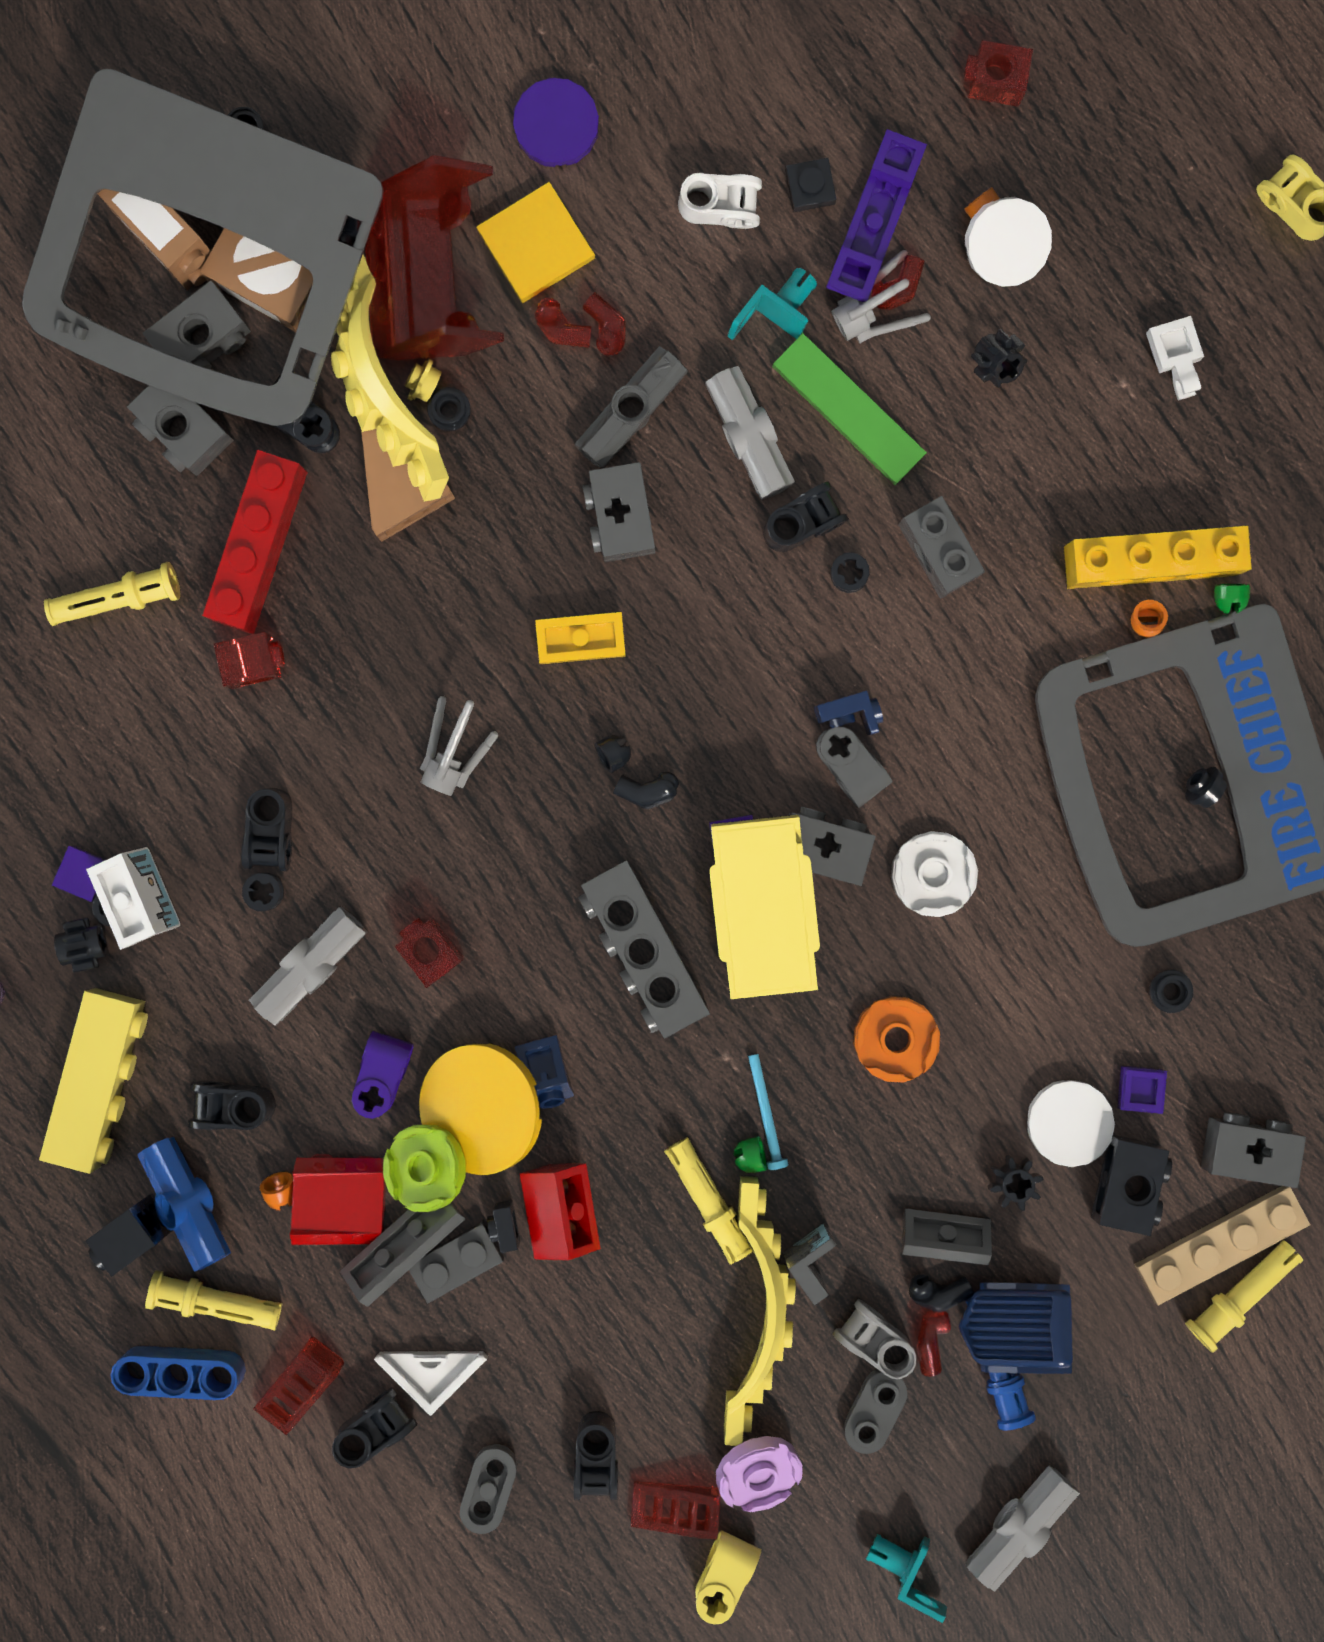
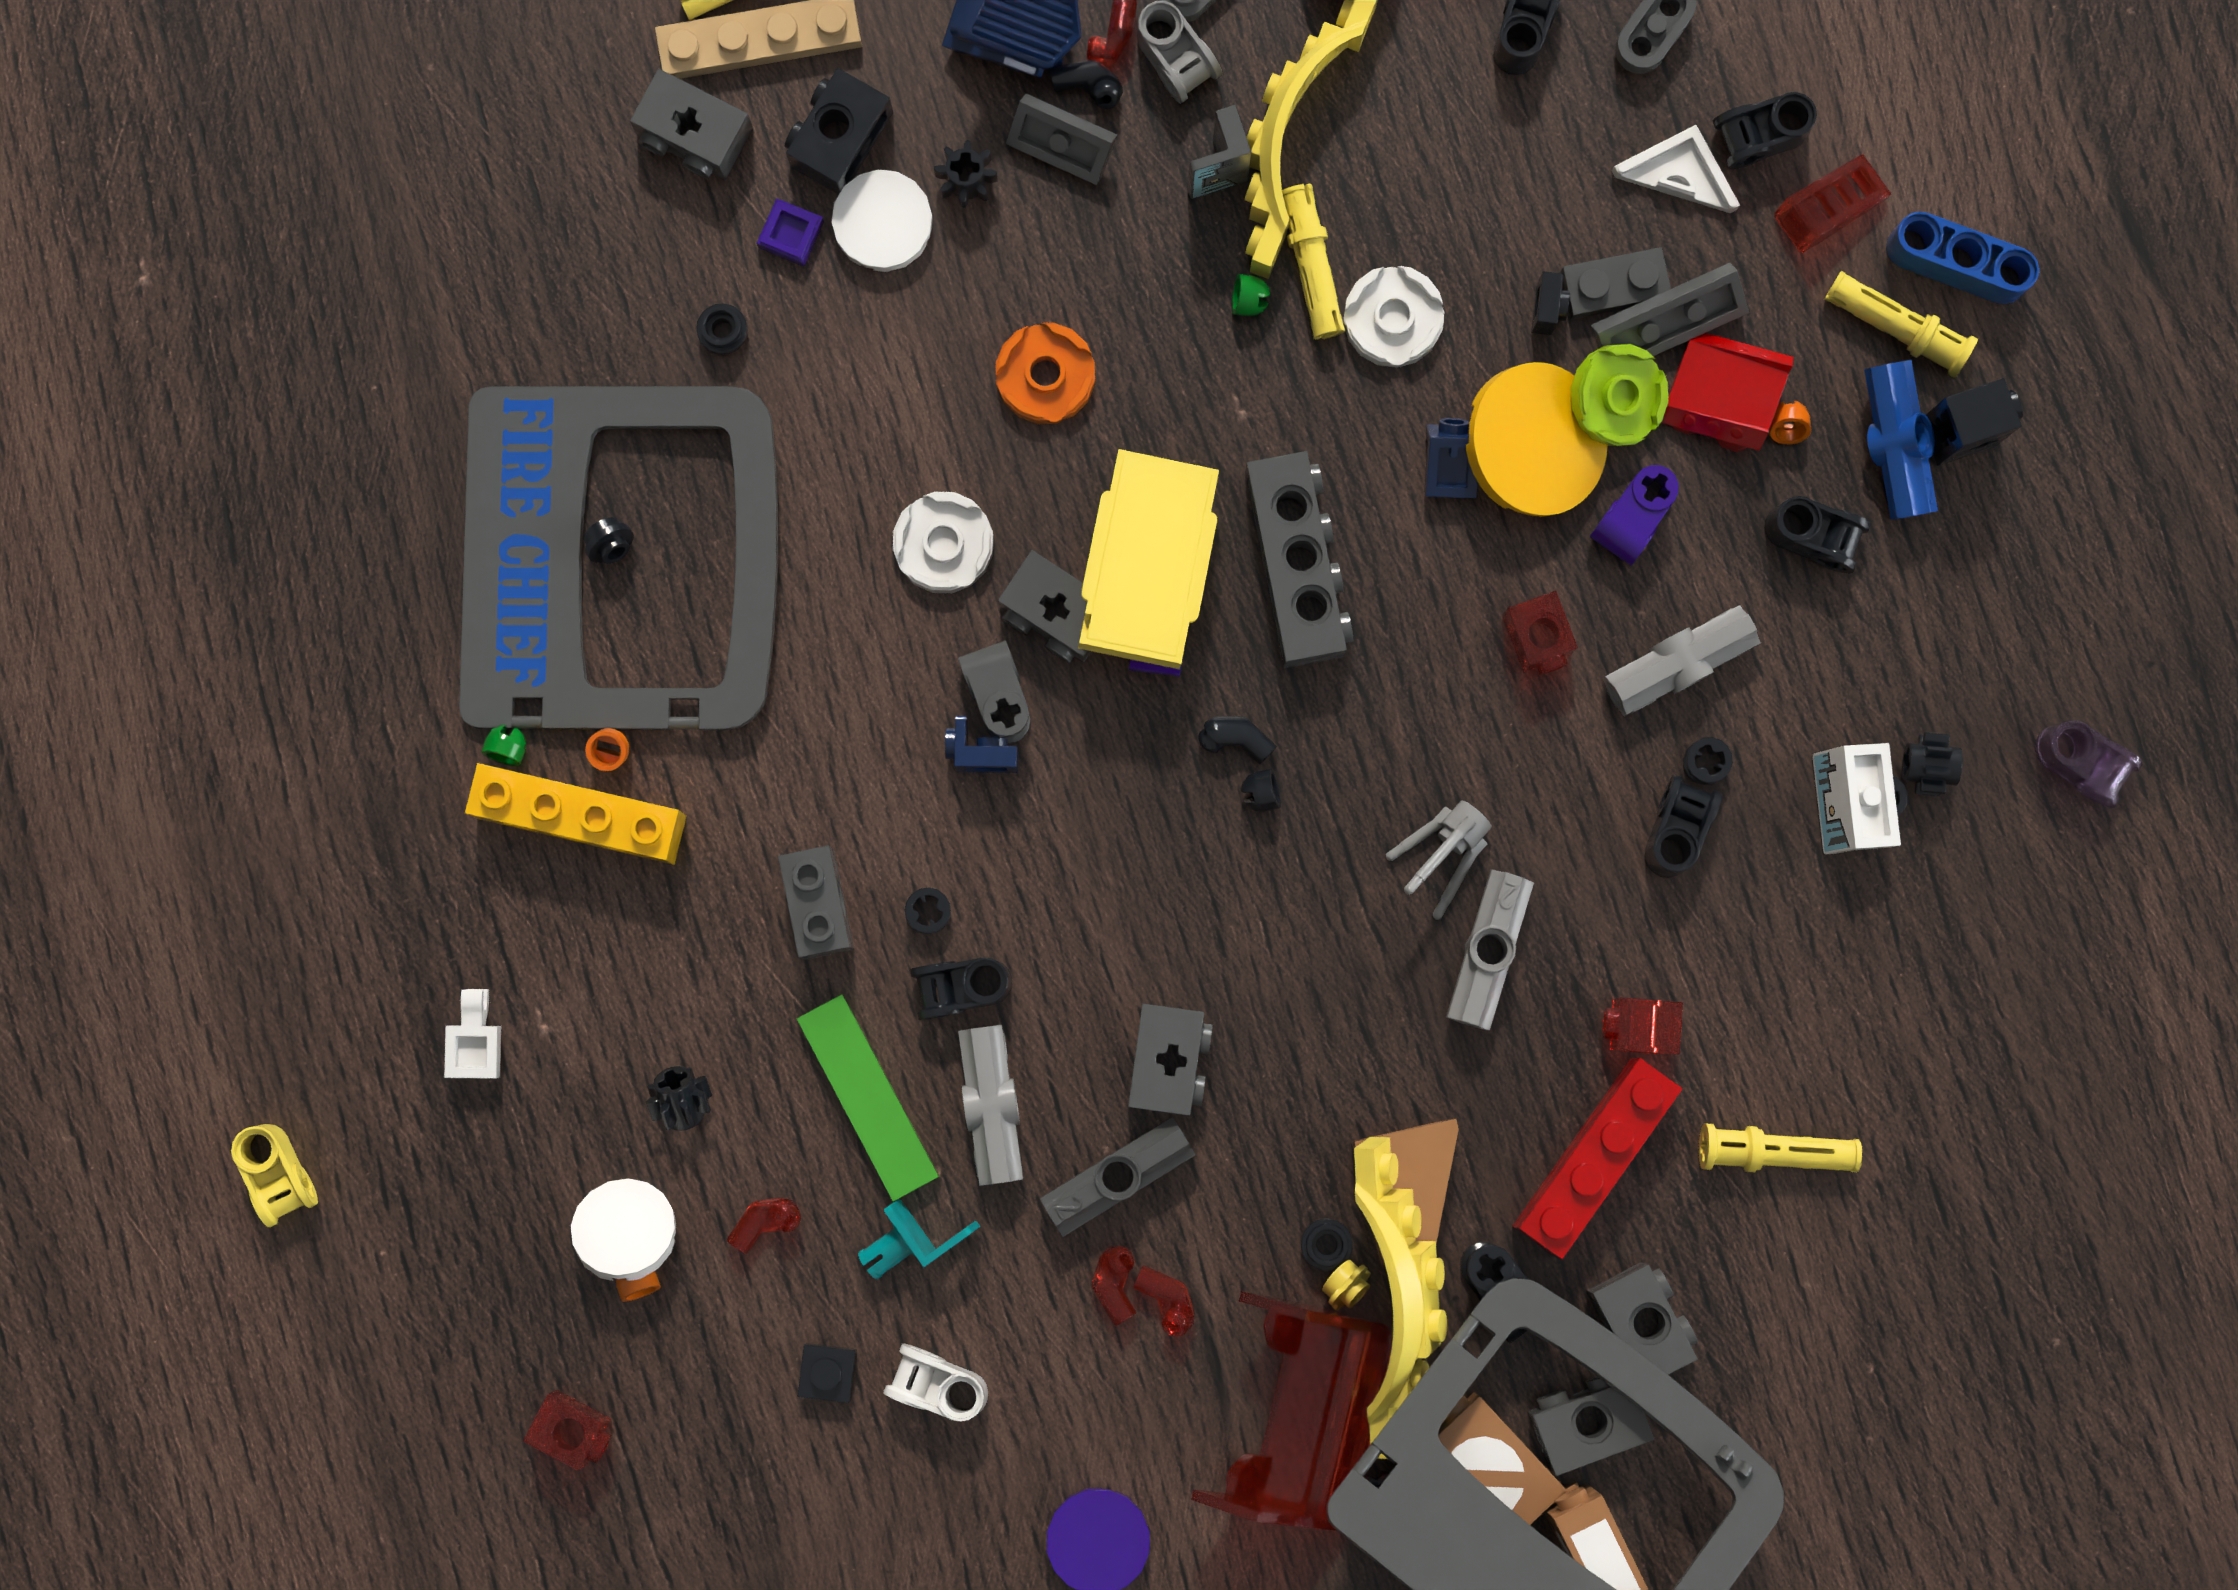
camera: 160 degrees left, 5 degrees down
(73, 874) = (1916, 850): dark purple tile -> none
(93, 1081) = (1962, 609): light yellow brick -> none
(391, 653) = (1500, 917): none -> light grey piece
(535, 242) = (1166, 1407): yellow tile -> none
(560, 1211) = (1482, 299): red brick -> none
(580, 638) = (1258, 932): yellow plate -> none
(628, 1176) = (1393, 316): none -> white tile
(777, 1161) = (1222, 280): medium azure piece -> none
(855, 317) = (825, 1201): light grey plant -> none
(876, 216) = (765, 1307): dark purple slope -> none

